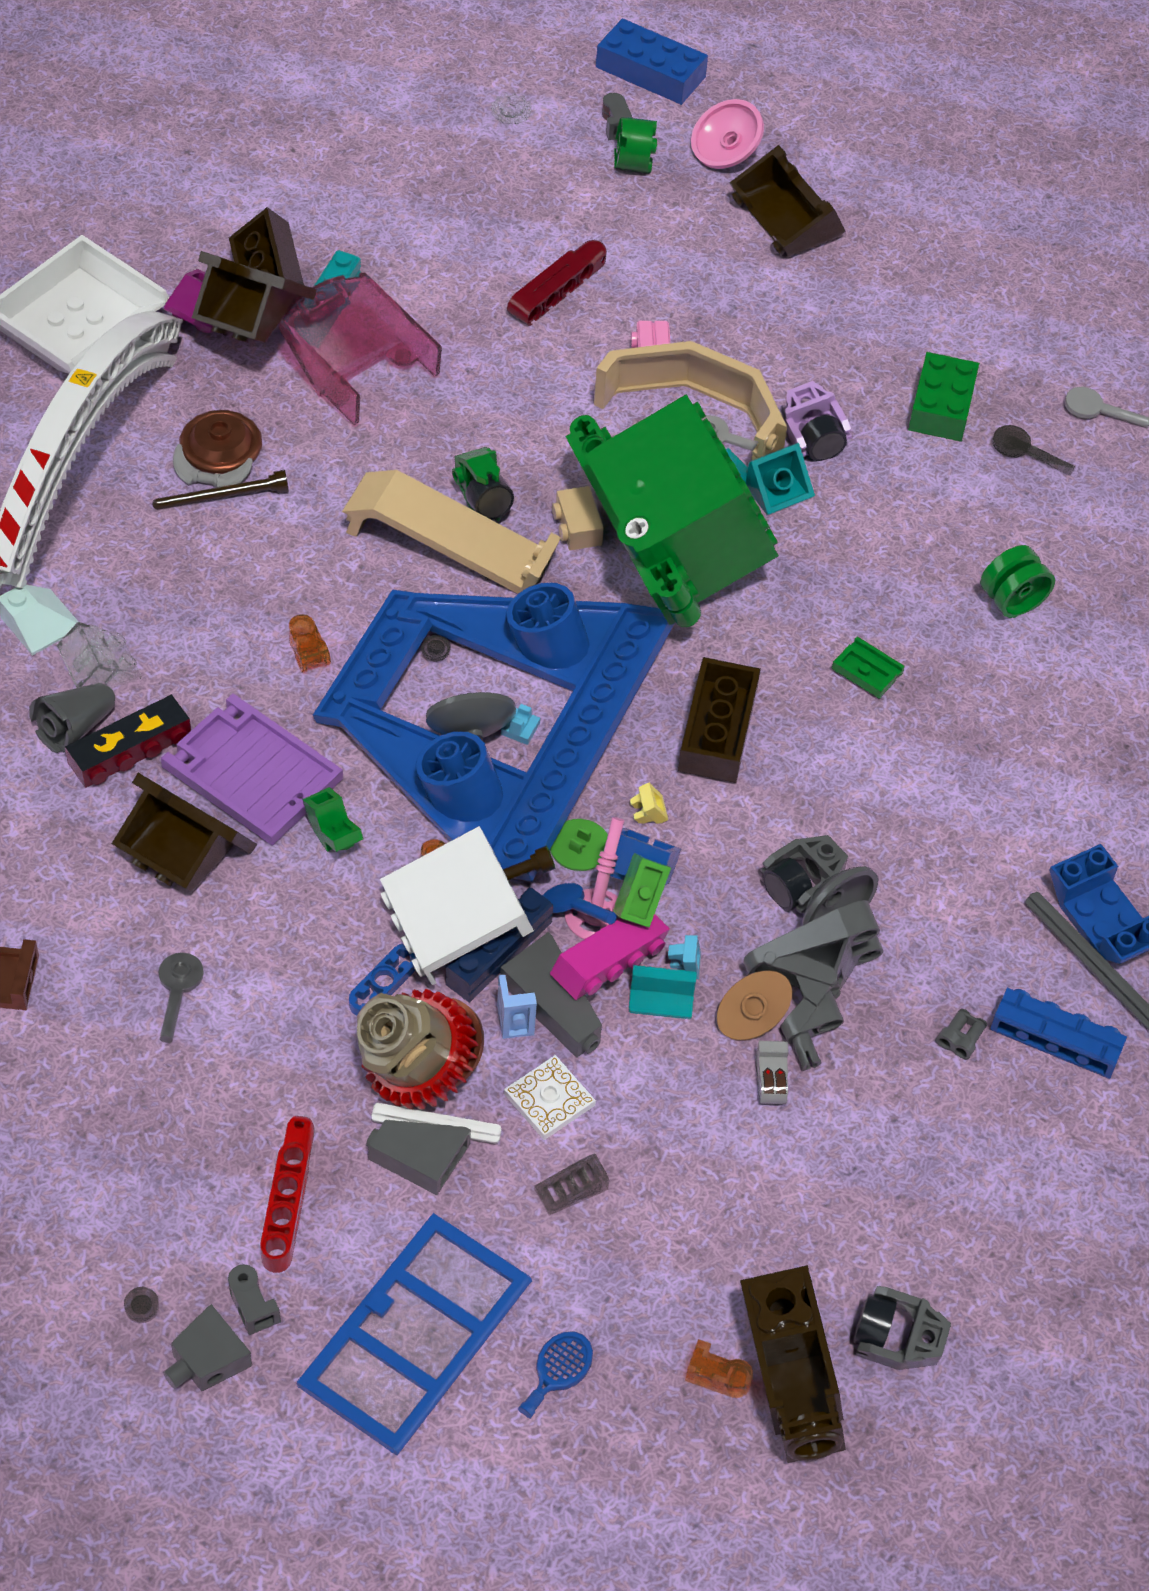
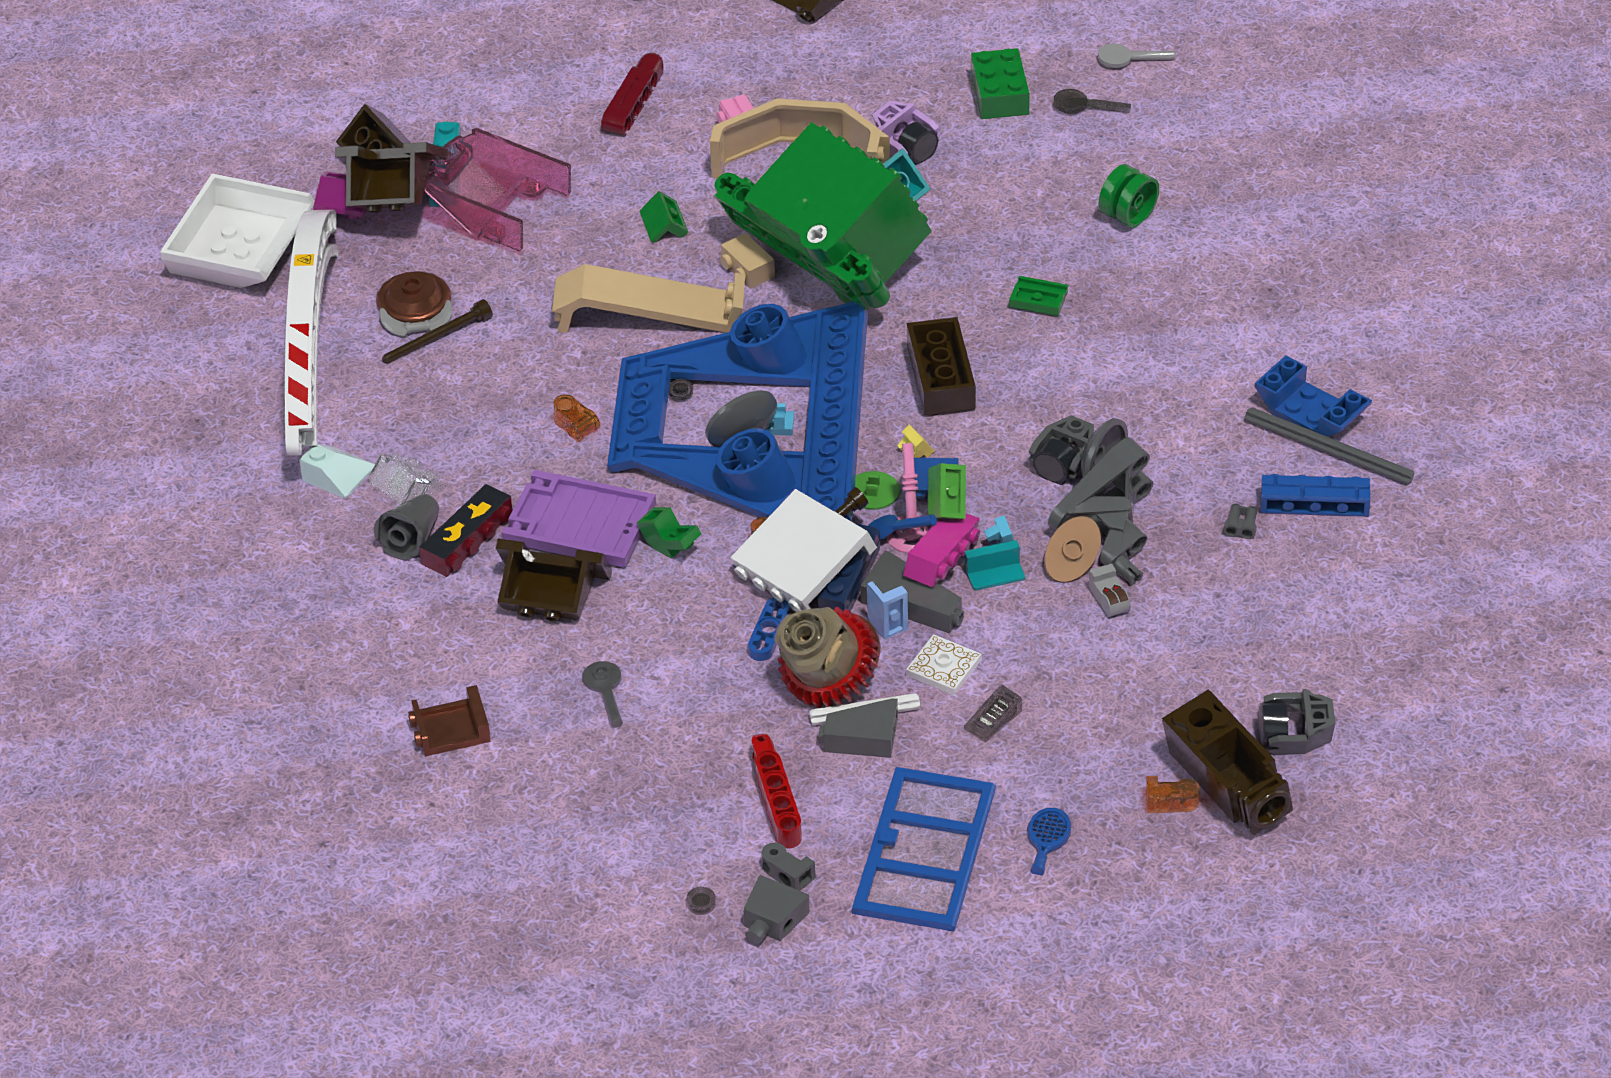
camera: 15 degrees left, 10 degrees down
(482, 484) = (656, 255): piece -> none
(519, 435) = (662, 215): none -> green panel

